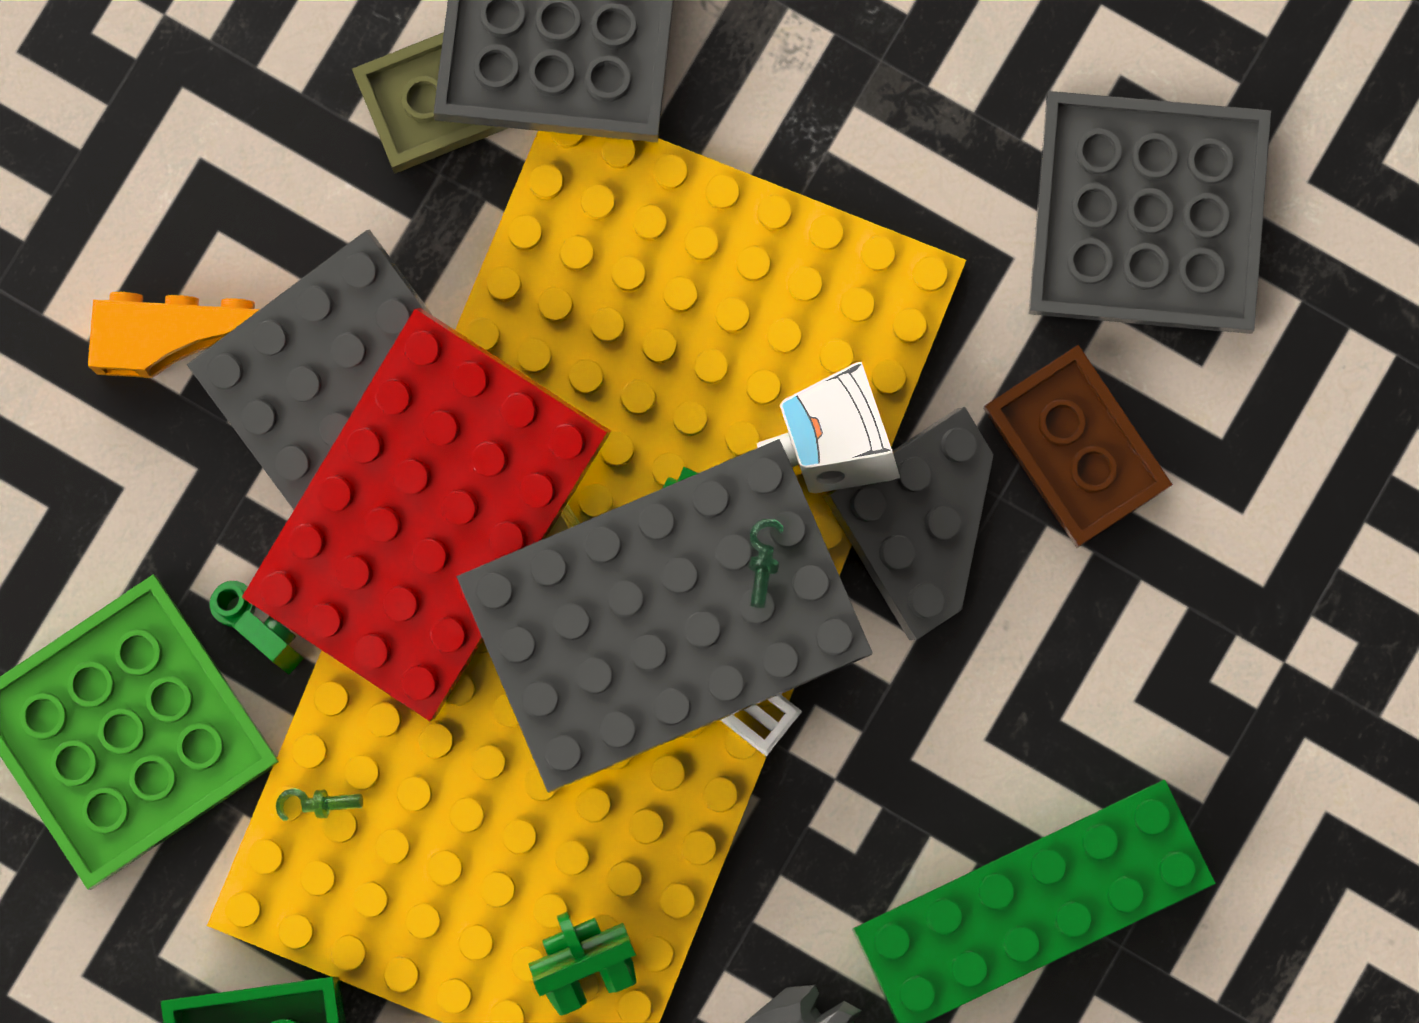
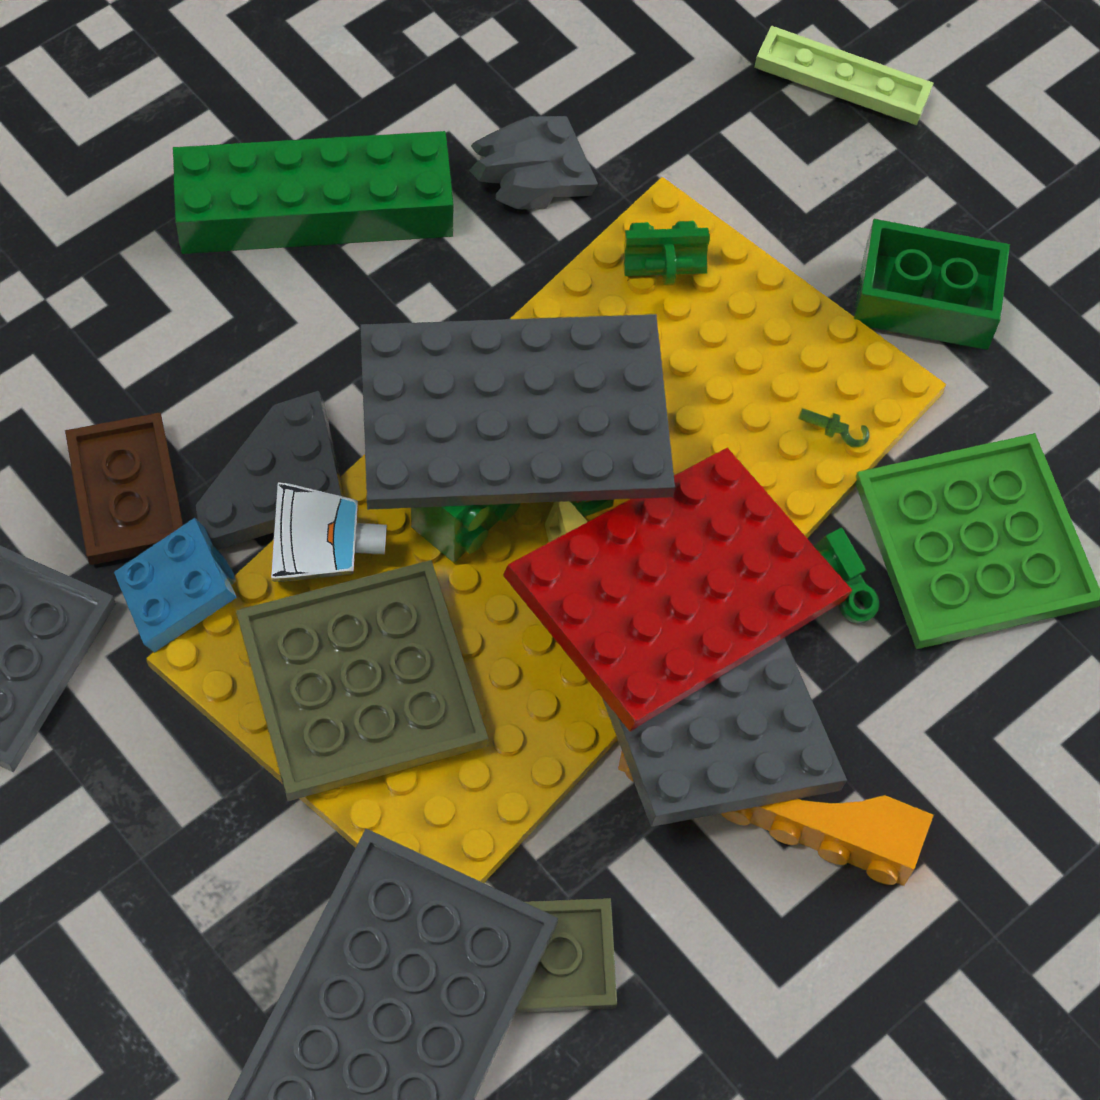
camera: 170 degrees left, 20 degrees down
(728, 301) = (361, 680): none -> olive plate
(763, 563) = (420, 400): clear green hand -> none
(967, 344) = (175, 584): none -> dark azure plate

